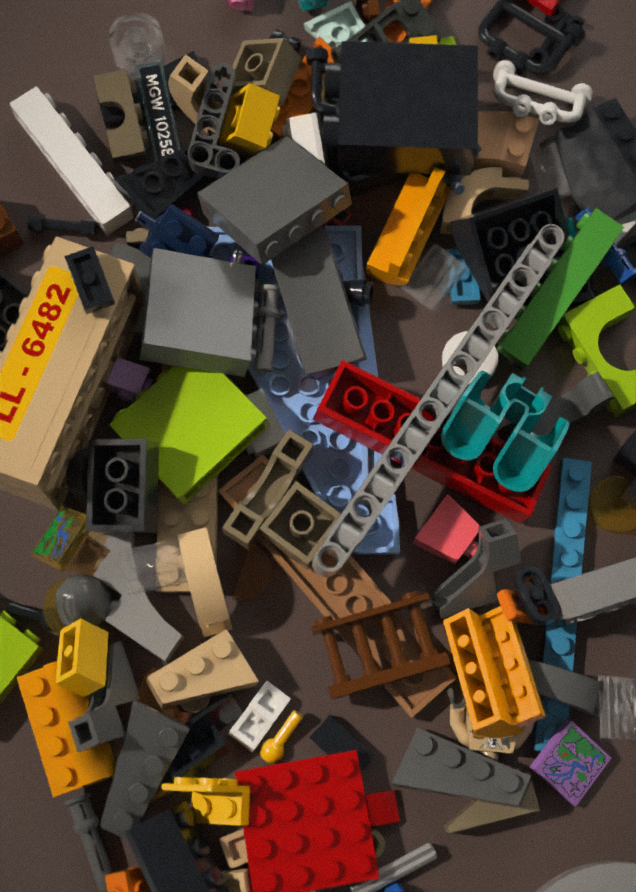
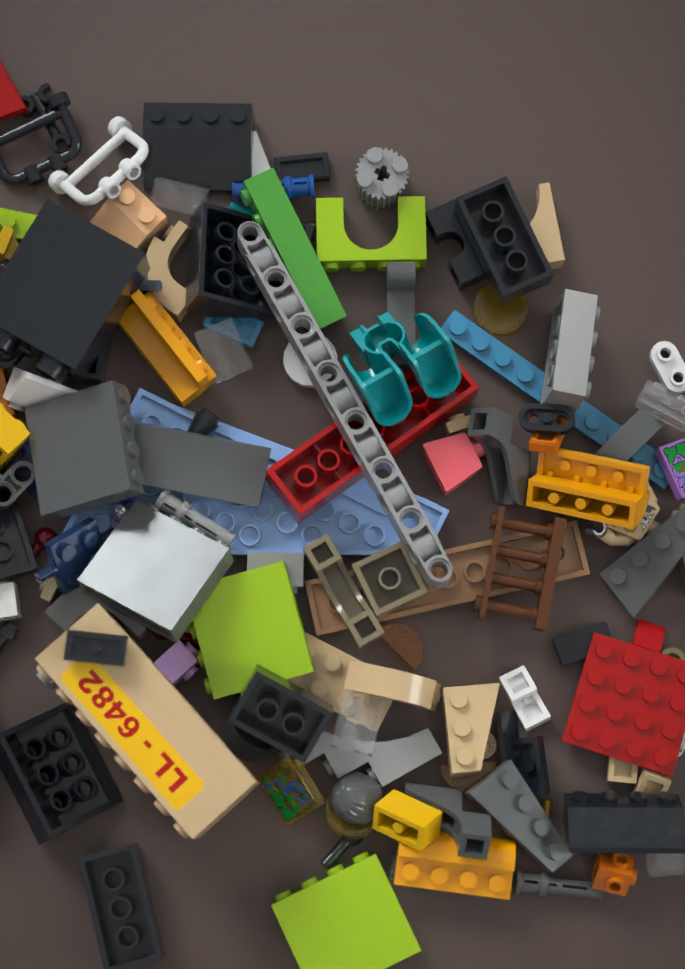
camera: 60 degrees left, 5 degrees up
(214, 800) = (578, 768): yellow bracket -> none
(273, 749) = (557, 701): yellow bar -> none
(484, 516) = (457, 424): none -> tan plate

